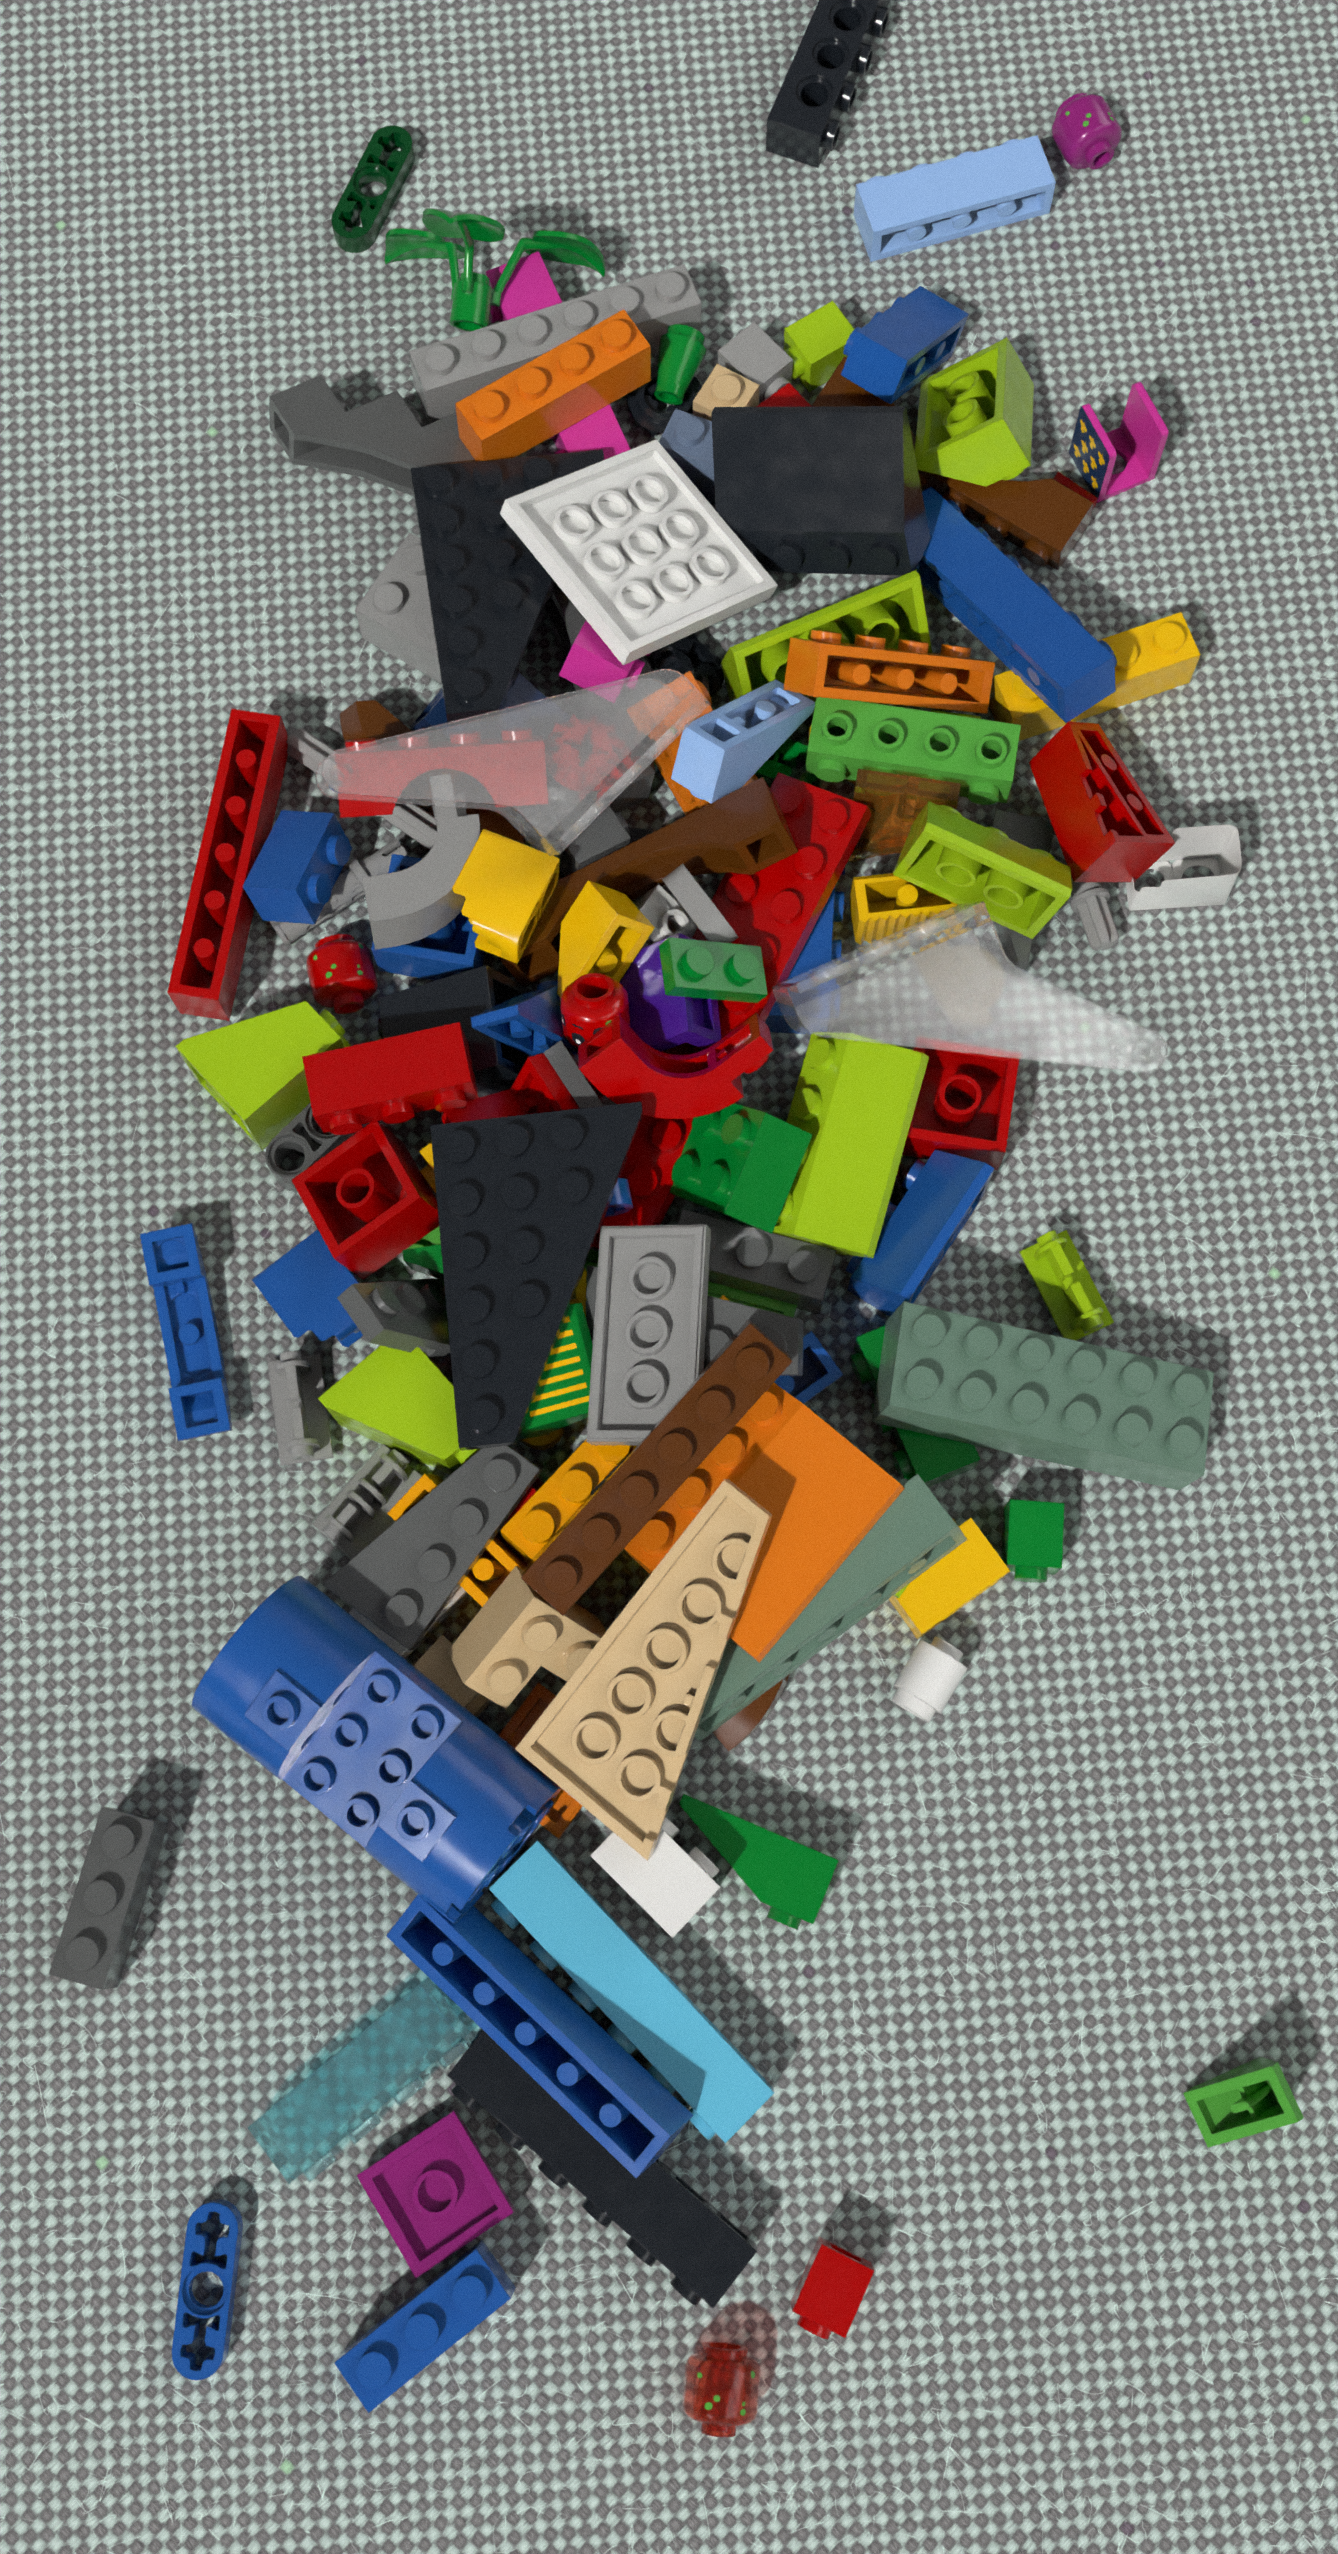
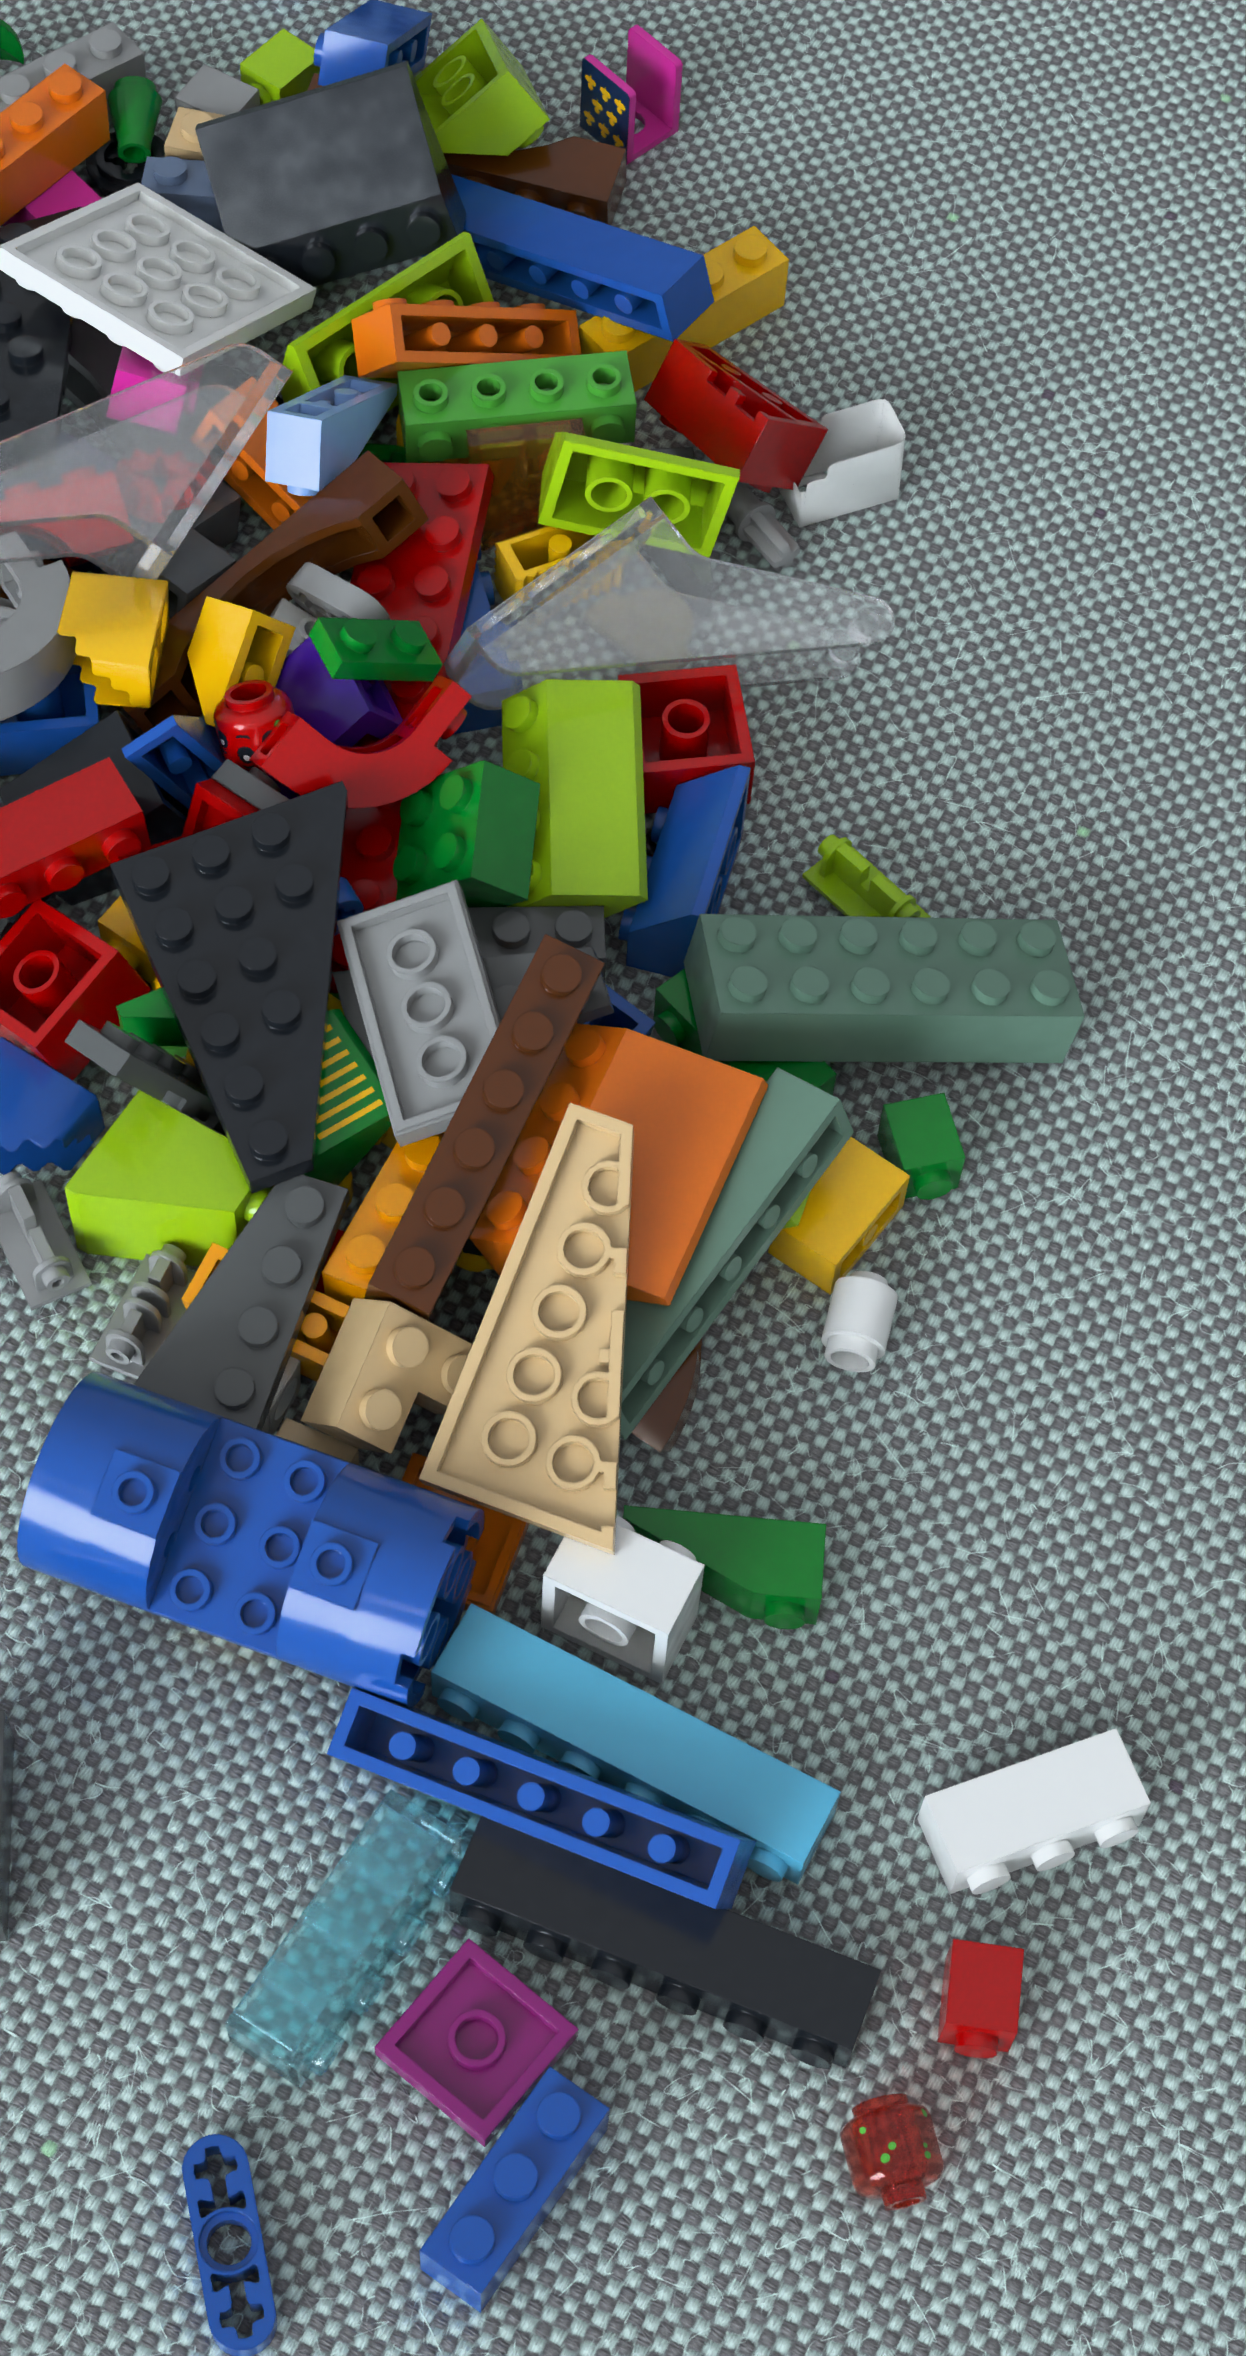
camera: 25 degrees left, 15 degrees down
(926, 2151) = (1034, 1813): none -> white brick

